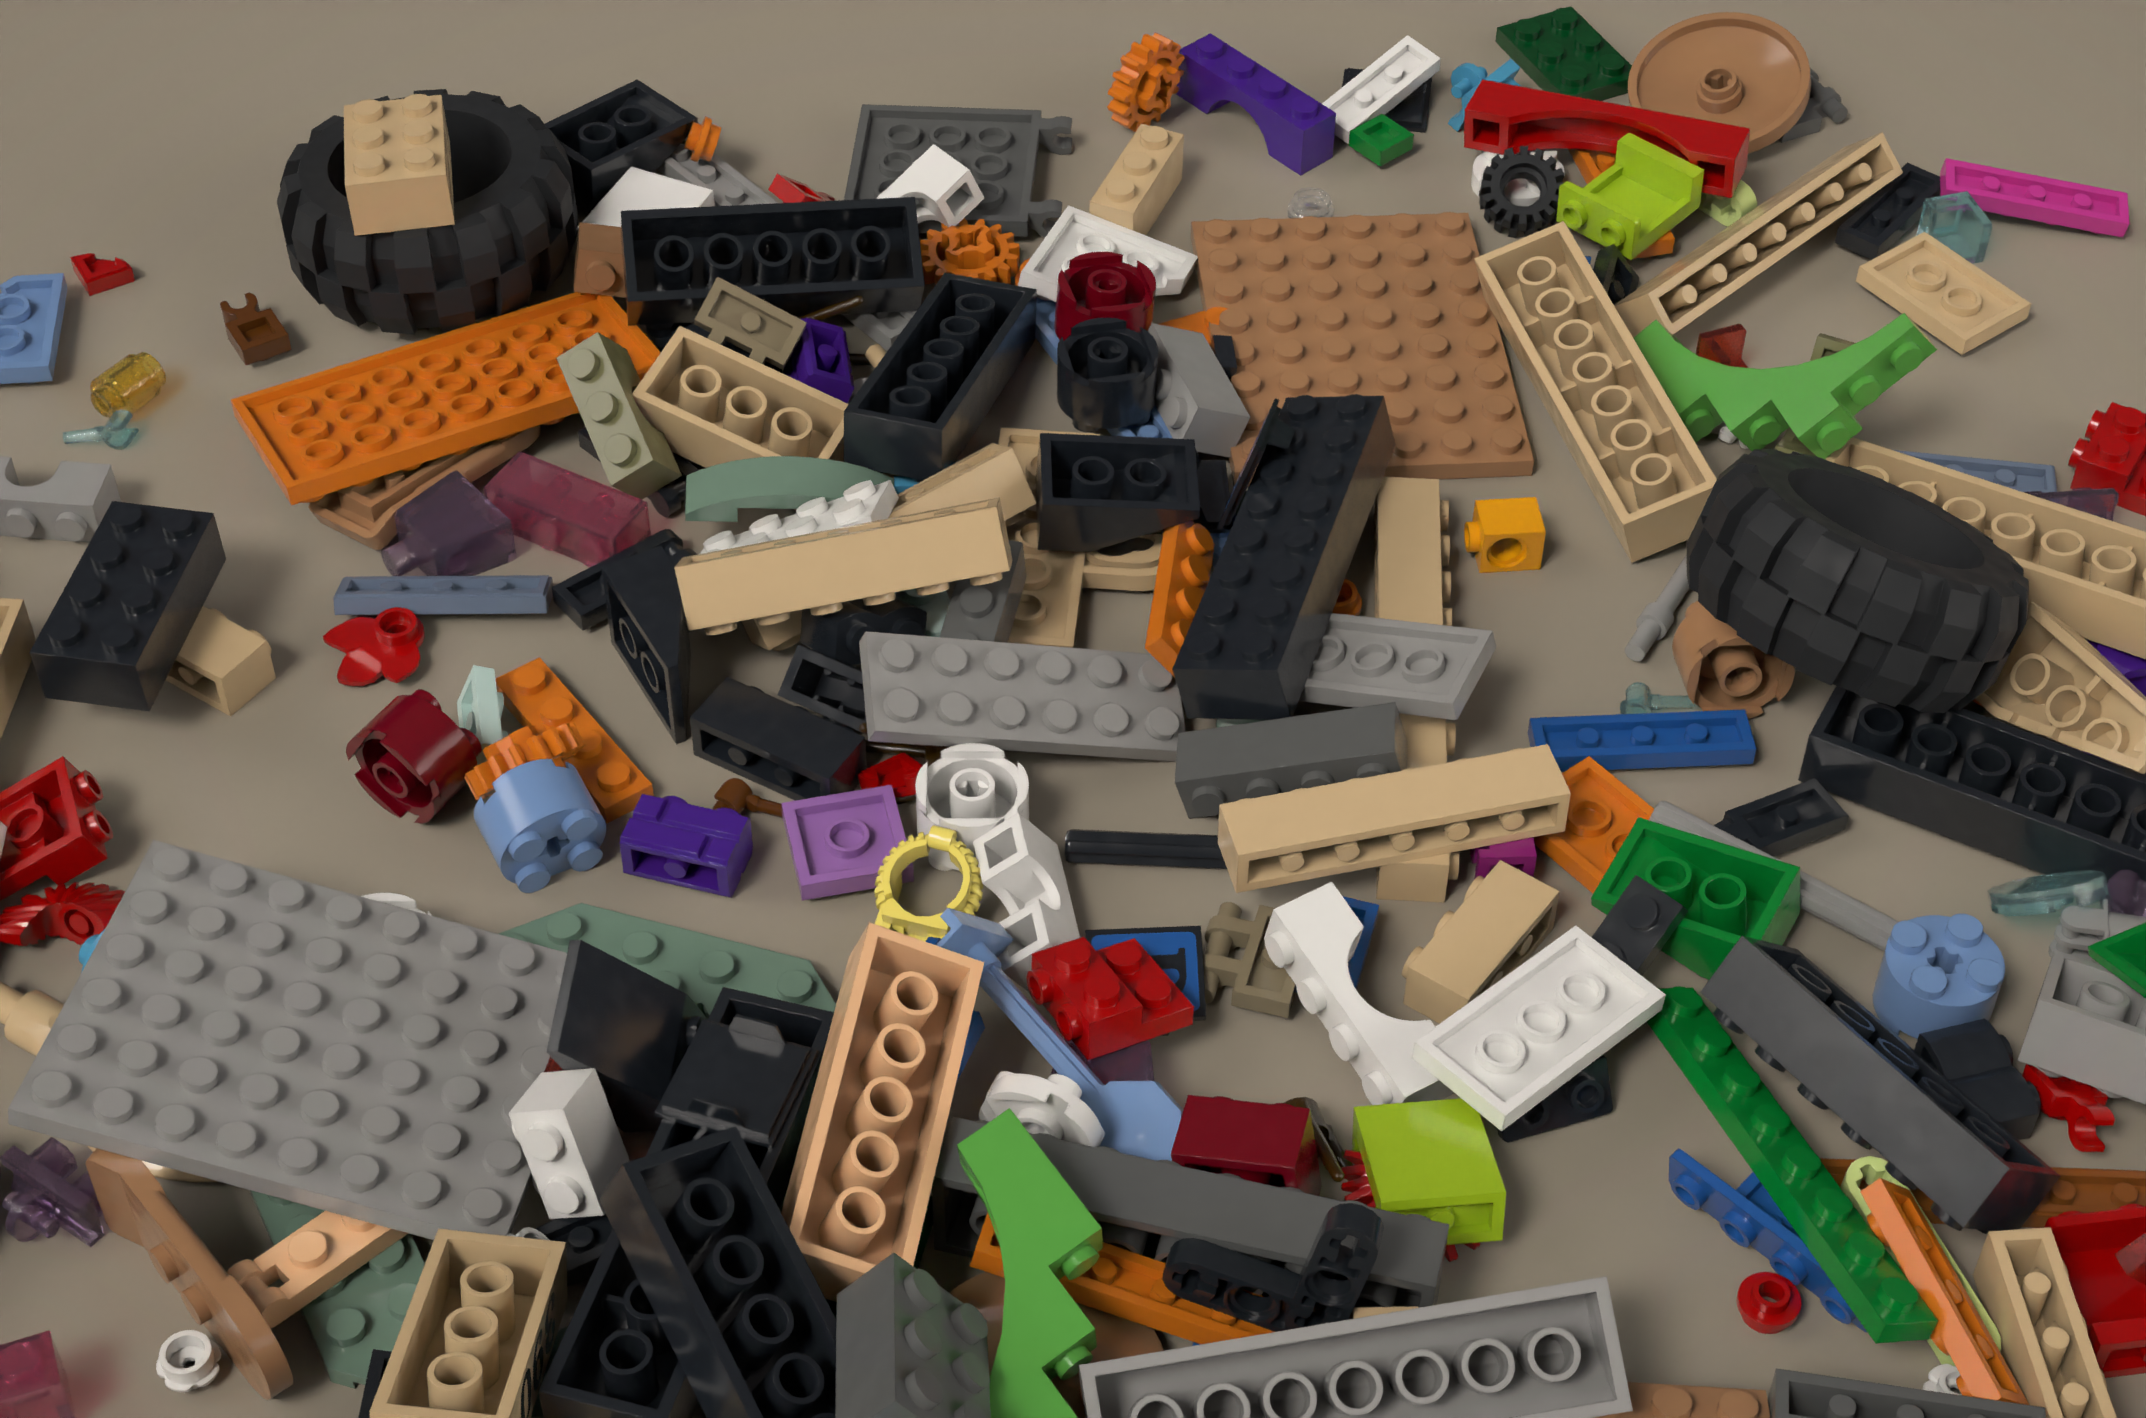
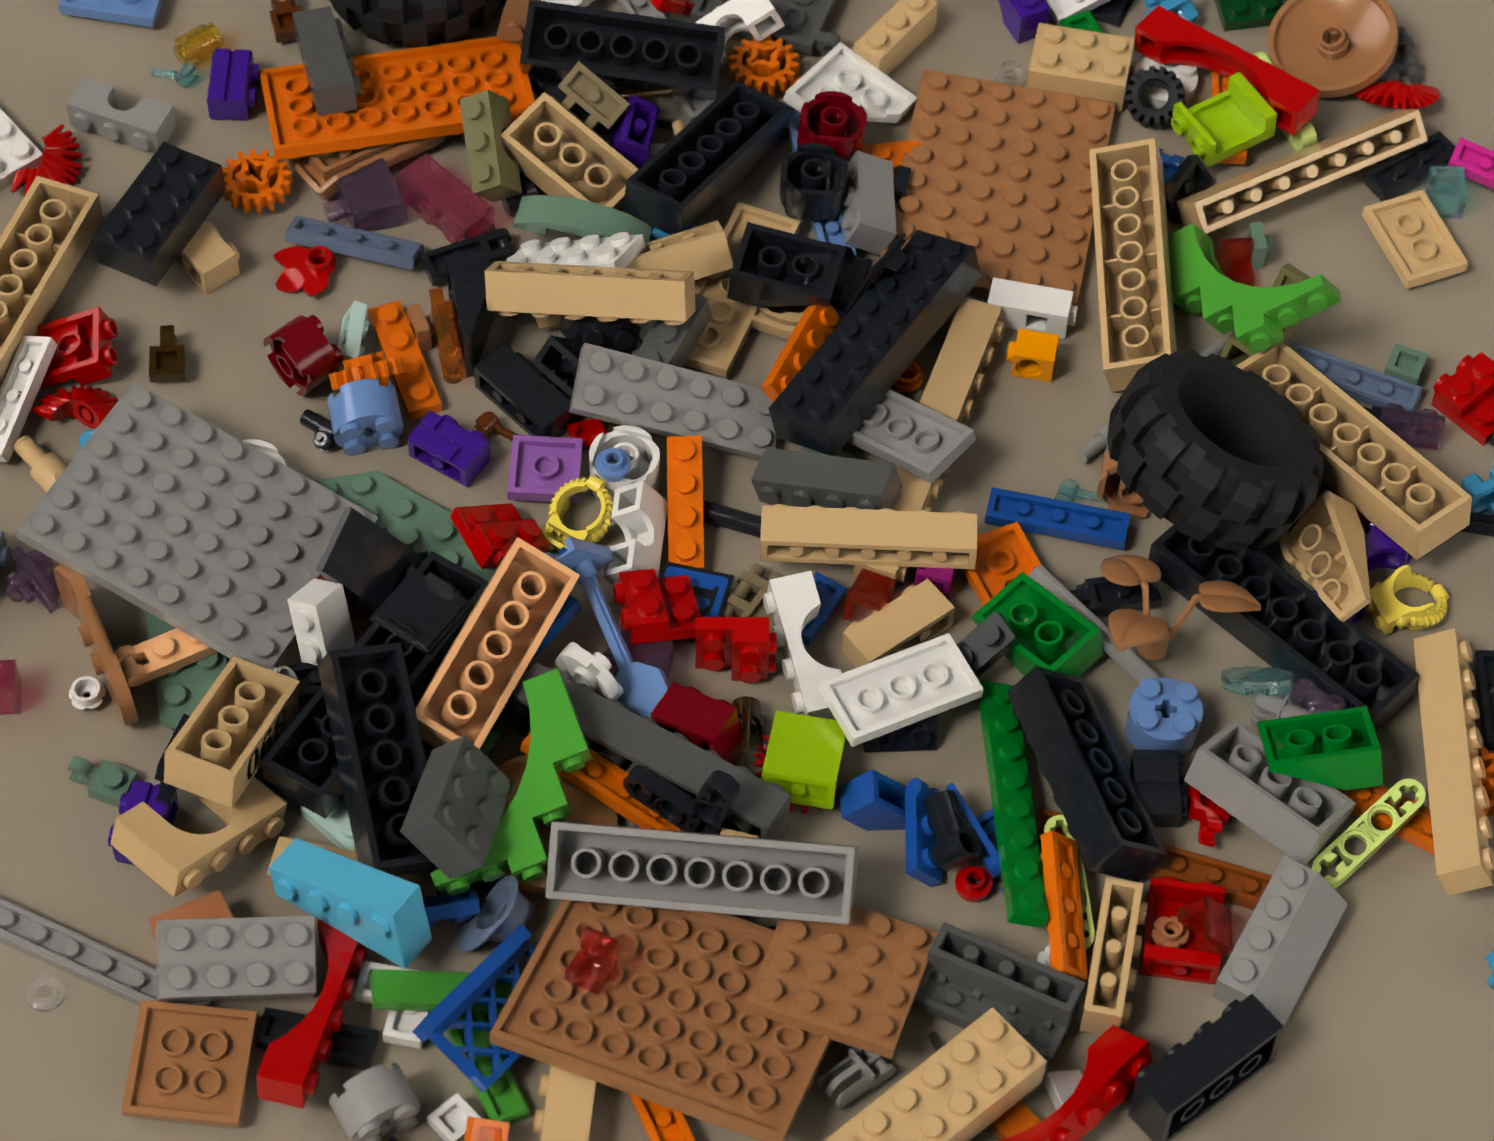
camera: 15 degrees right, 10 degrees up
(193, 816) = (168, 359): none -> dark brown plate
(194, 426) = (231, 84): none -> dark purple brick
(269, 543) = (256, 181): none -> orange gear
(332, 363) = (326, 60): none -> dark grey brick
(475, 862) = (322, 430): none -> black arm
(586, 684) = (421, 326): none -> medium nougat plate
(627, 692) = (446, 337): none -> clear orange plate
(800, 947) = (492, 531): none -> red plate
(963, 801) = (616, 471): none -> medium blue plate
(1085, 835) = (685, 501): none -> orange plate
(1252, 1024) = (737, 645): none -> red plate
(1403, 172) = (1081, 63): none -> tan brick
(1419, 902) = (869, 591): none -> clear red panel
(1477, 470) = (1033, 306): none -> white brick
(1570, 1213) = (873, 802): none -> blue slope
(1658, 1239) = (919, 835): none -> blue plate
(1720, 1237) = (954, 840): none -> black piece
(1755, 336) = (1262, 244): none -> sand green plate
(1828, 134) = (1398, 95): none -> red hair
(1865, 853) = (1150, 633): none -> medium nougat plant
(2016, 440) = (1406, 364): none -> sand green plate
(2101, 1308) = (1174, 940): none -> nougat plate

